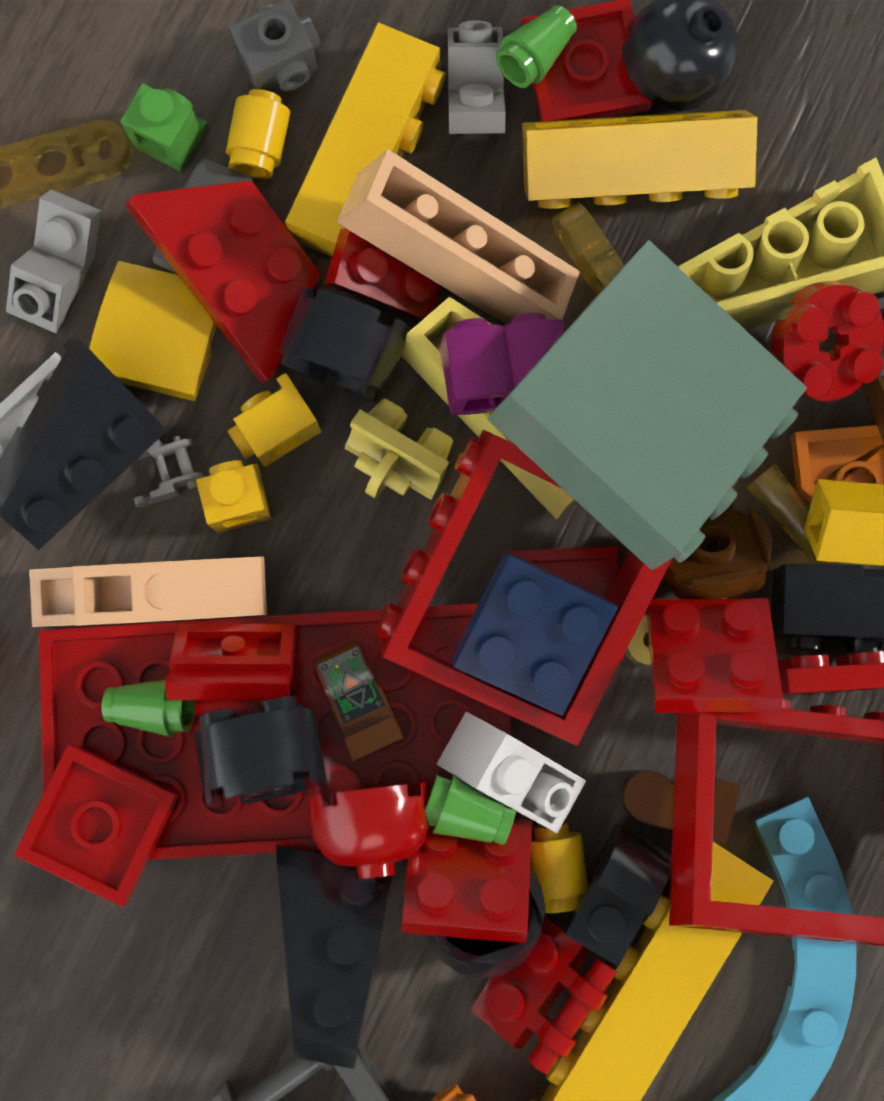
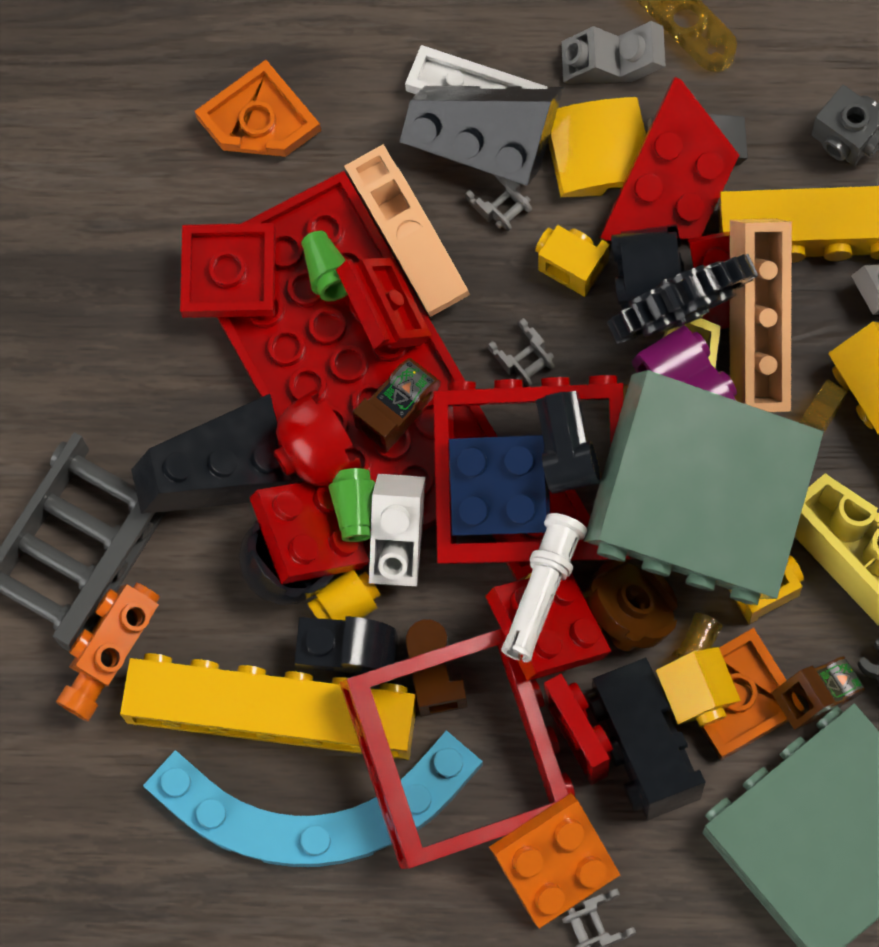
camera: 70 degrees right, 10 degrees down
(163, 126) = (752, 79): bright green brick -> none
(233, 496) = (503, 255): yellow brick -> none
(257, 133) = (781, 145): yellow brick -> none
(259, 753) = (328, 347): black brick -> none
(362, 548) = (511, 363): none -> light grey piece
(394, 458) = (585, 347): light yellow hips -> none
(428, 313) = (682, 298): none -> black gear
(520, 999) = (250, 629): red plate -> none
(549, 537) = (569, 456): none -> black piece
(668, 622) = (549, 567): none -> white pin
(857, 346) = (820, 636): red plate -> none

